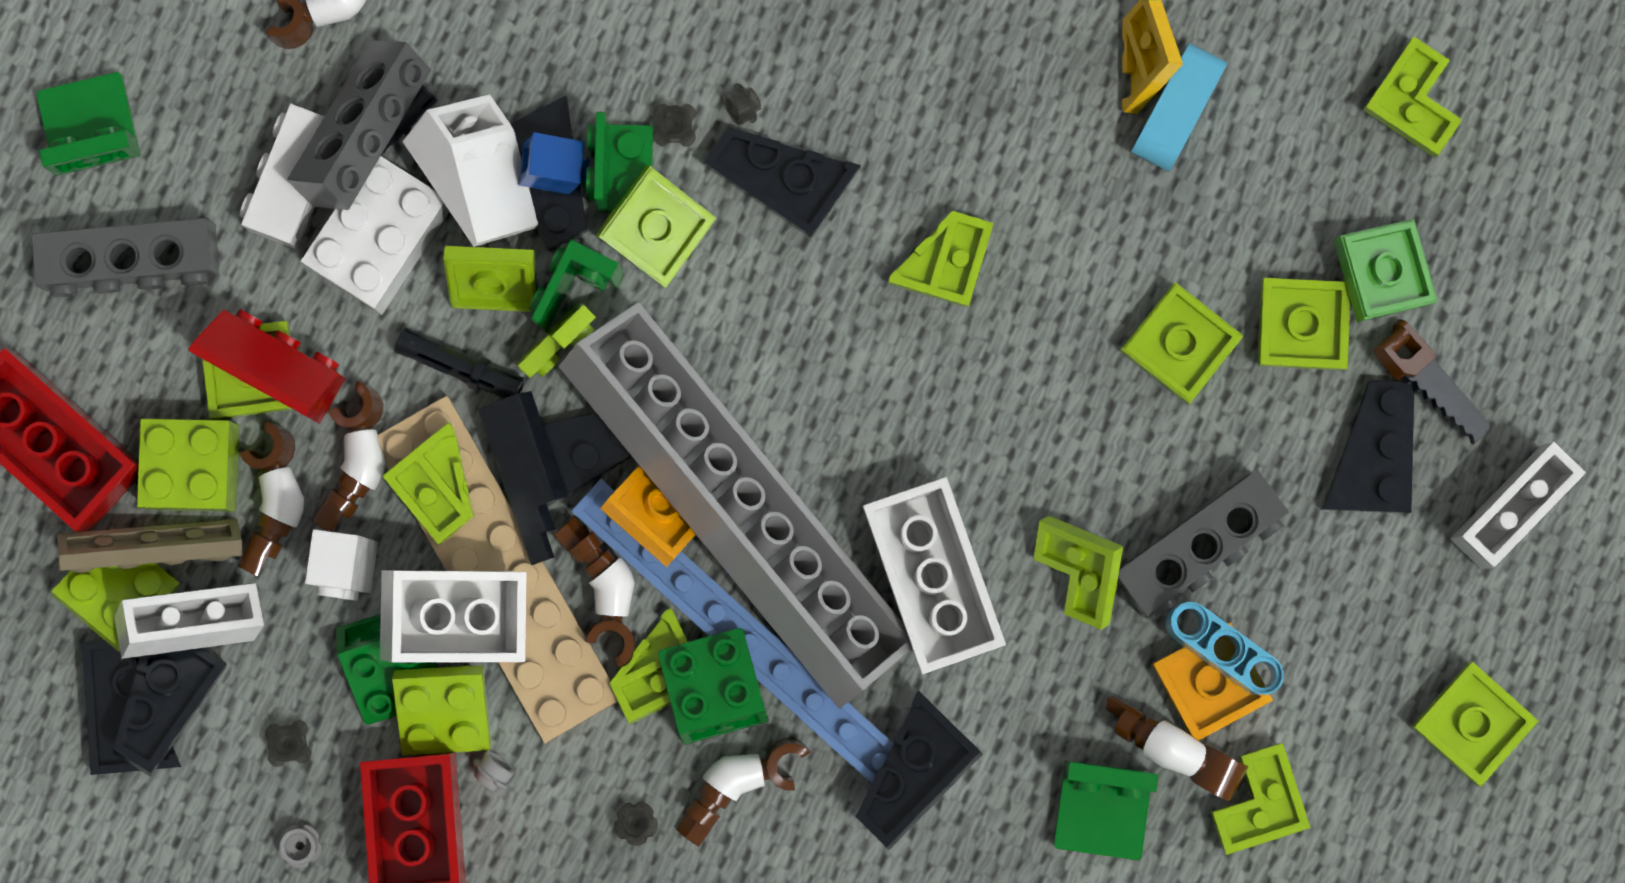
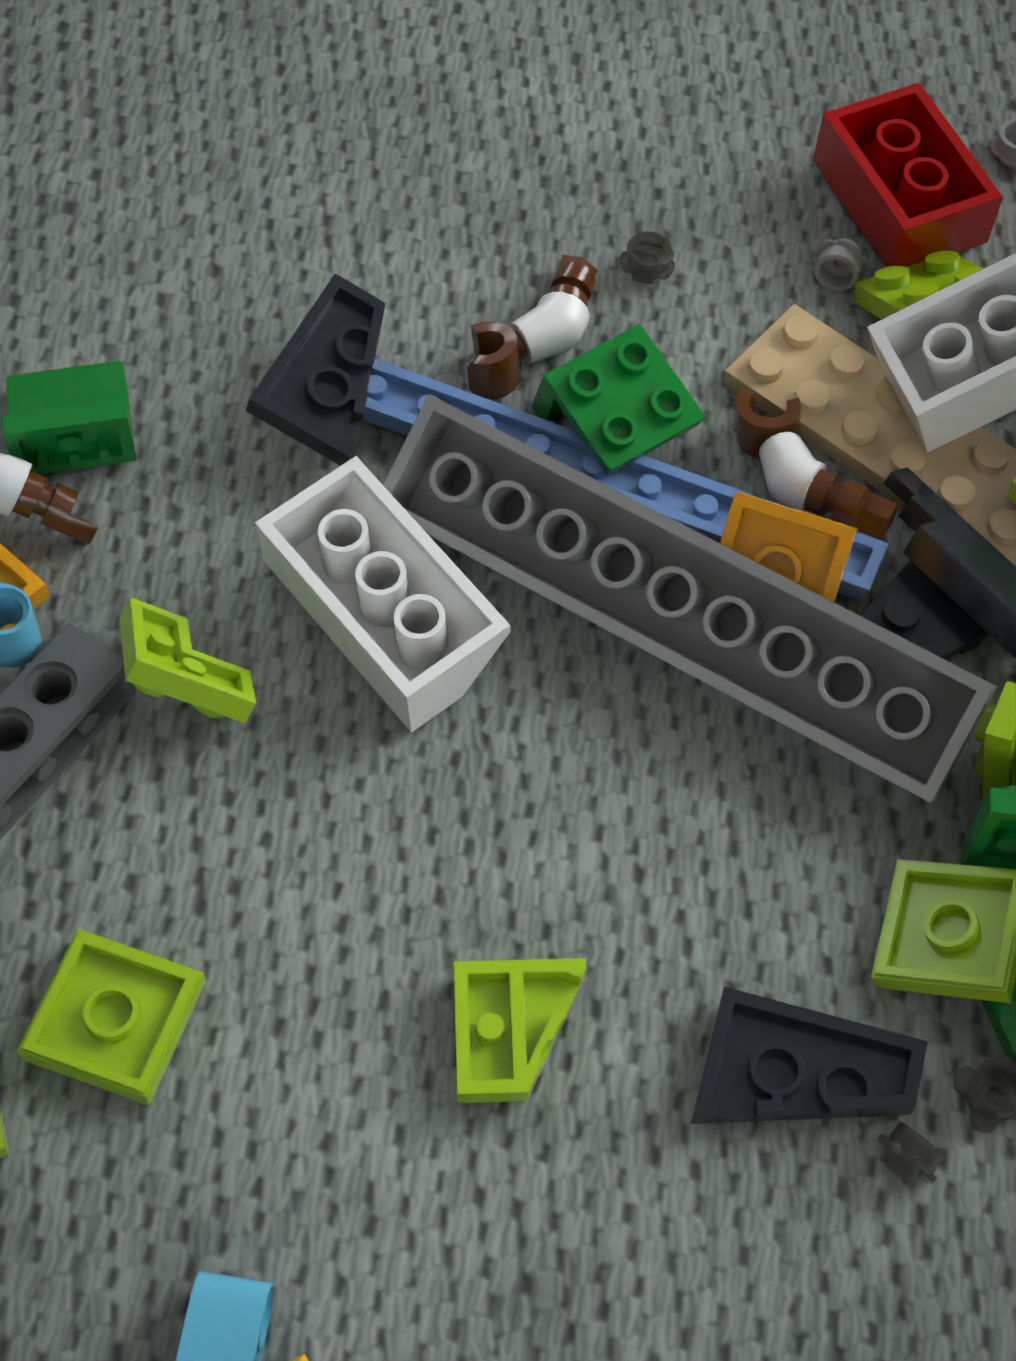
camera: 160 degrees right, 25 degrees down
(641, 682) = (714, 386): lime wing -> none

